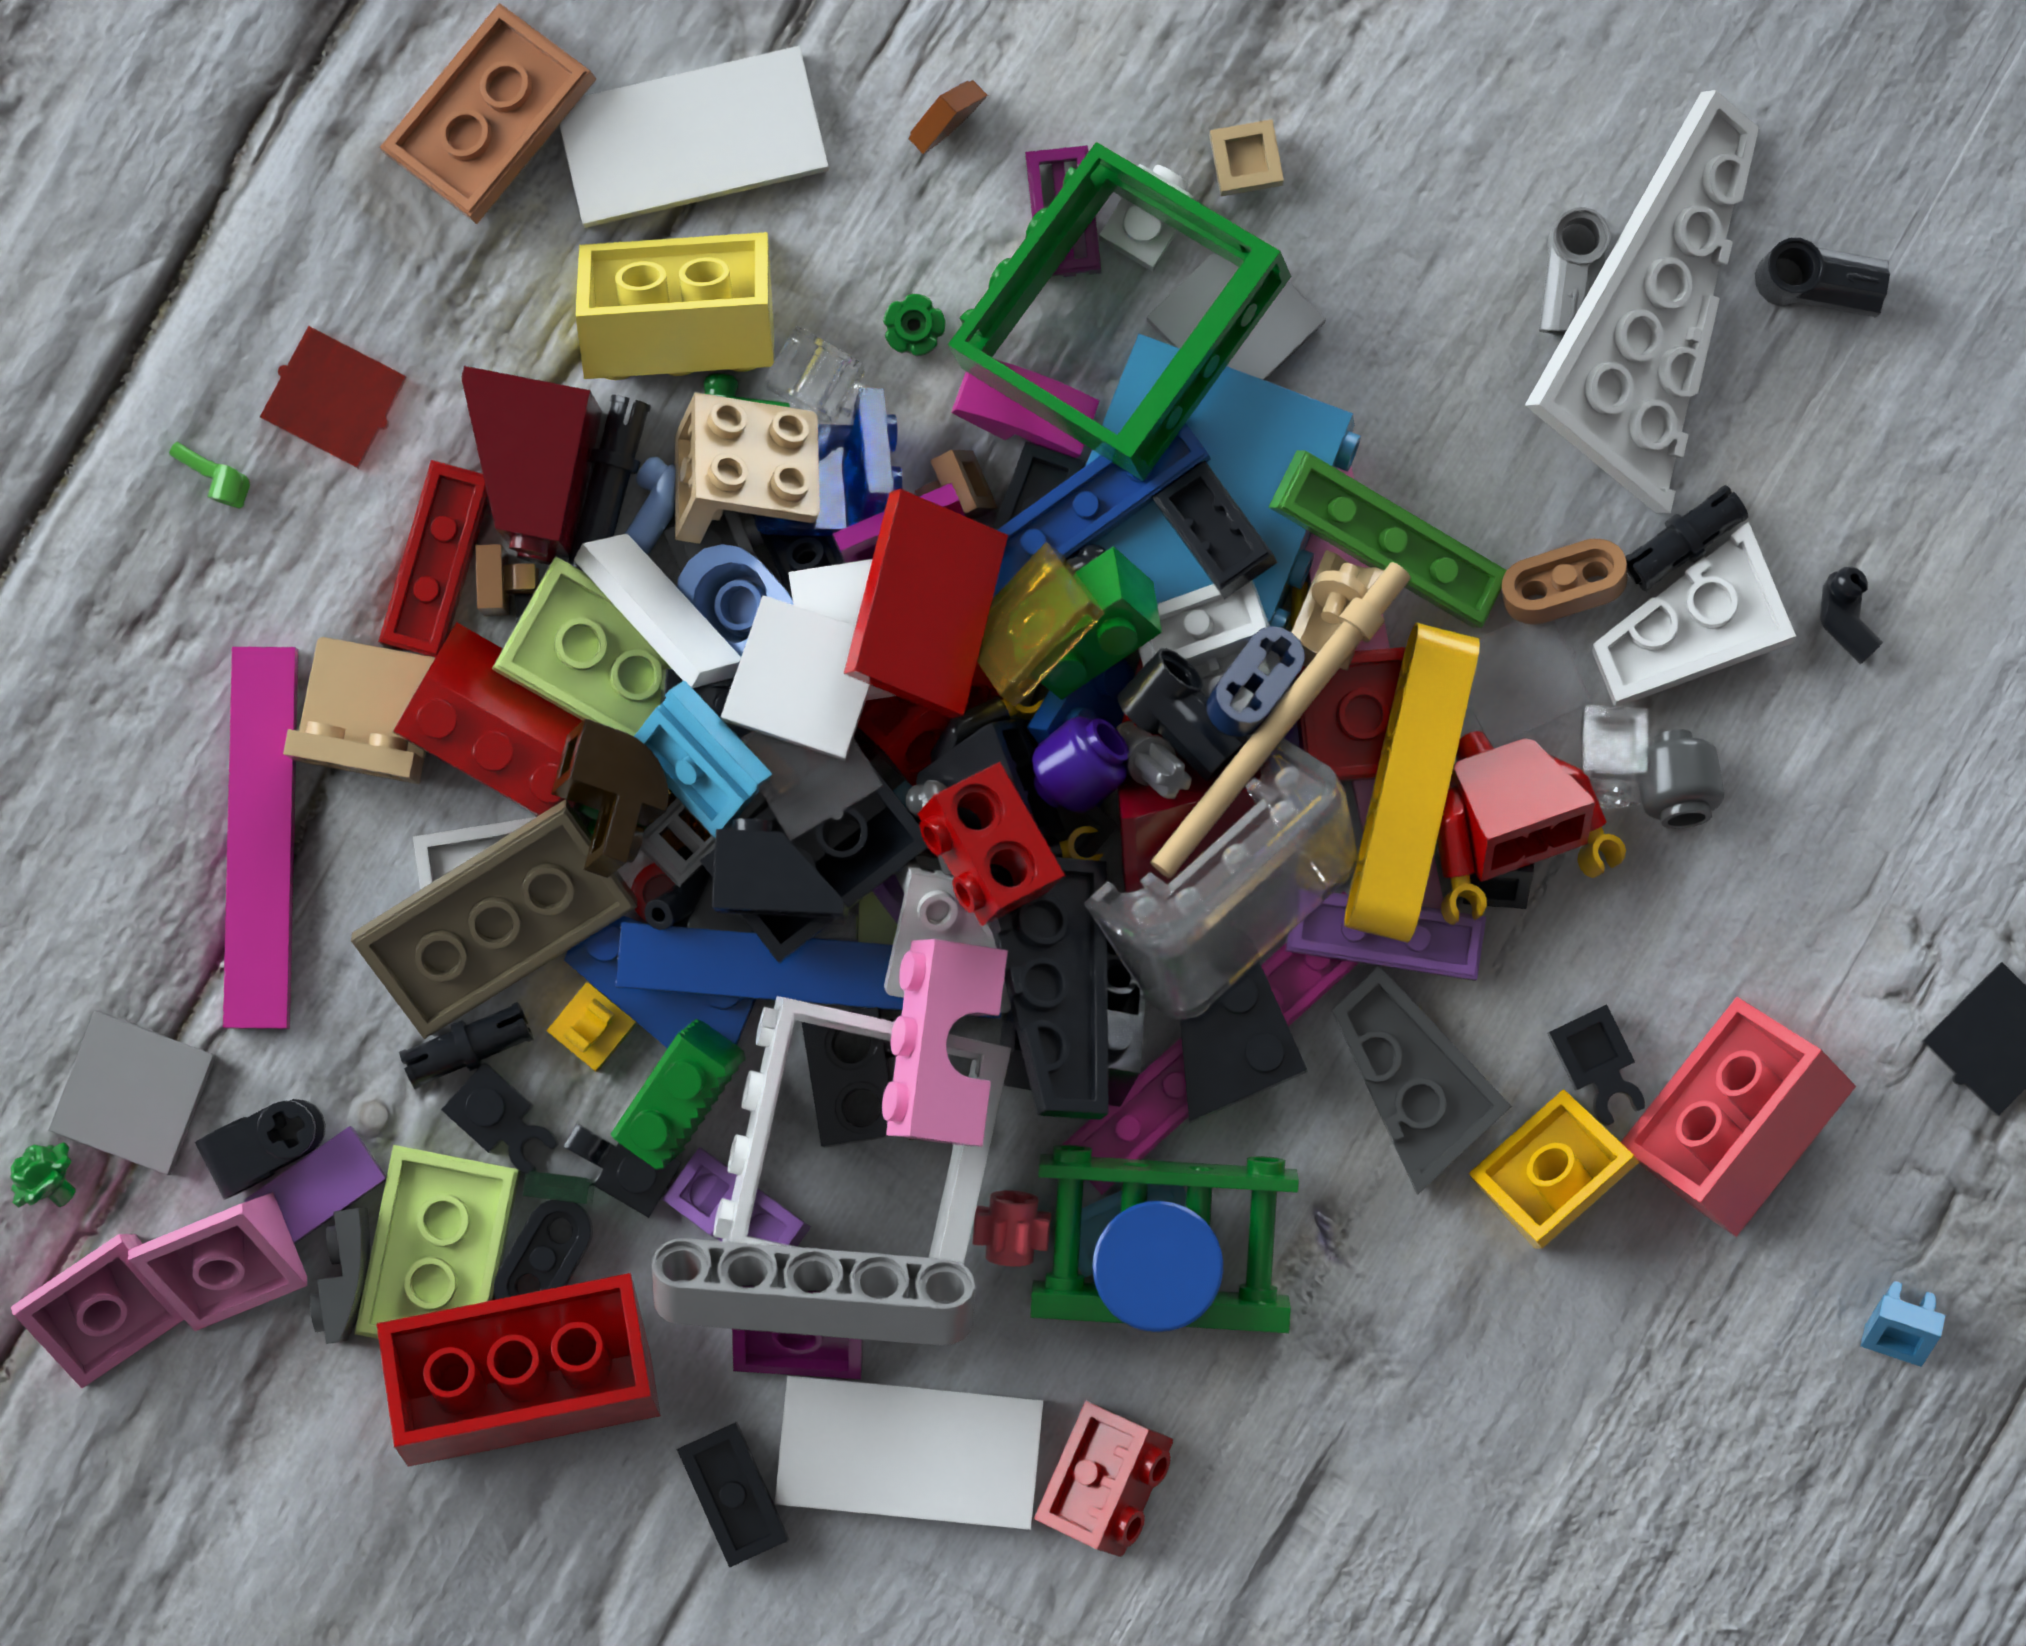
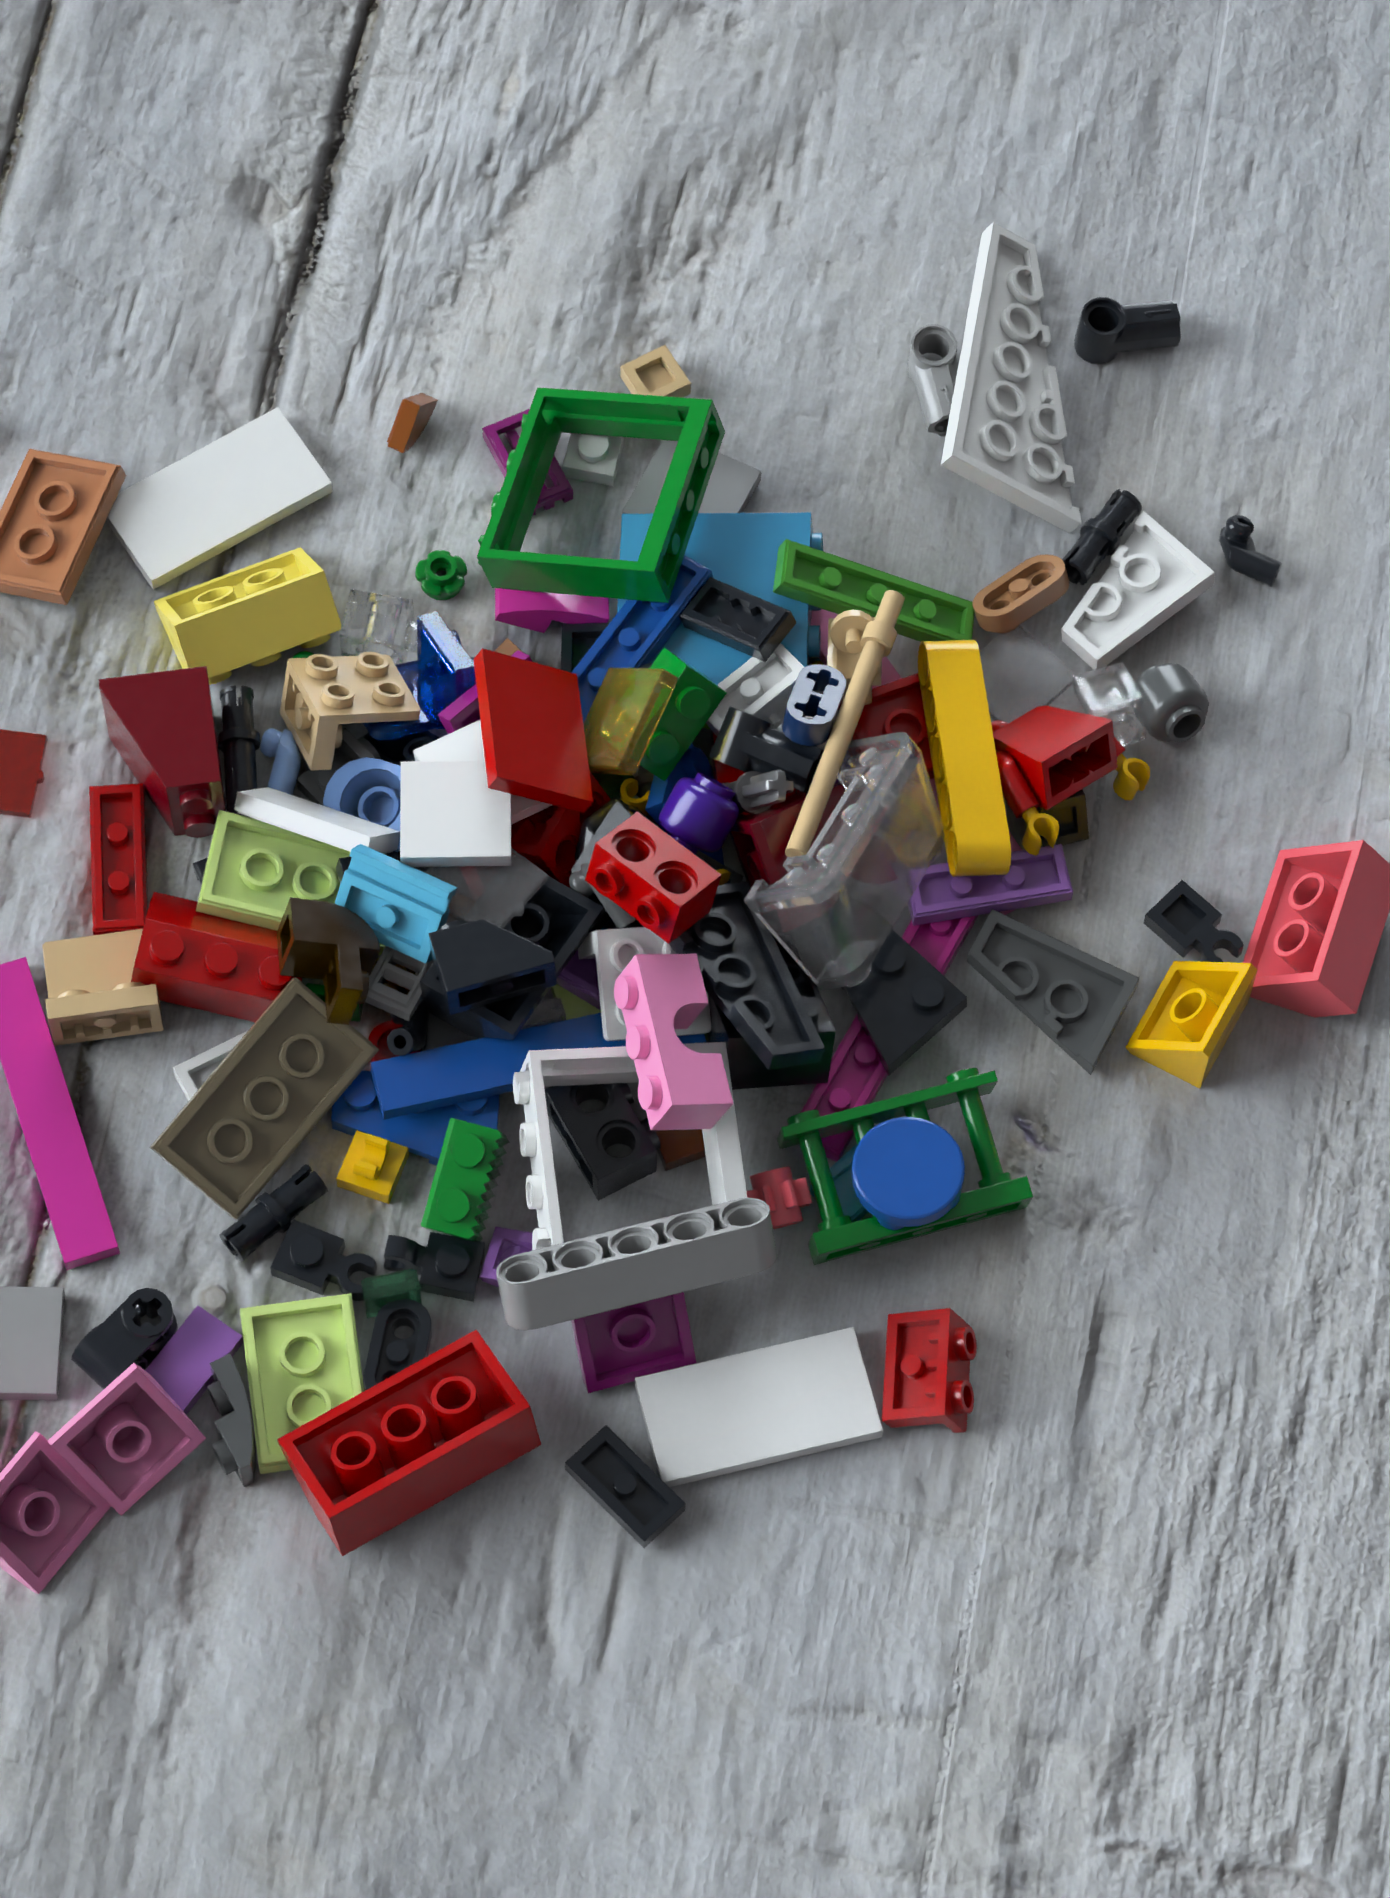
camera: 30 degrees left, 20 degrees down
(498, 580) = (178, 852): medium nougat tile -> none

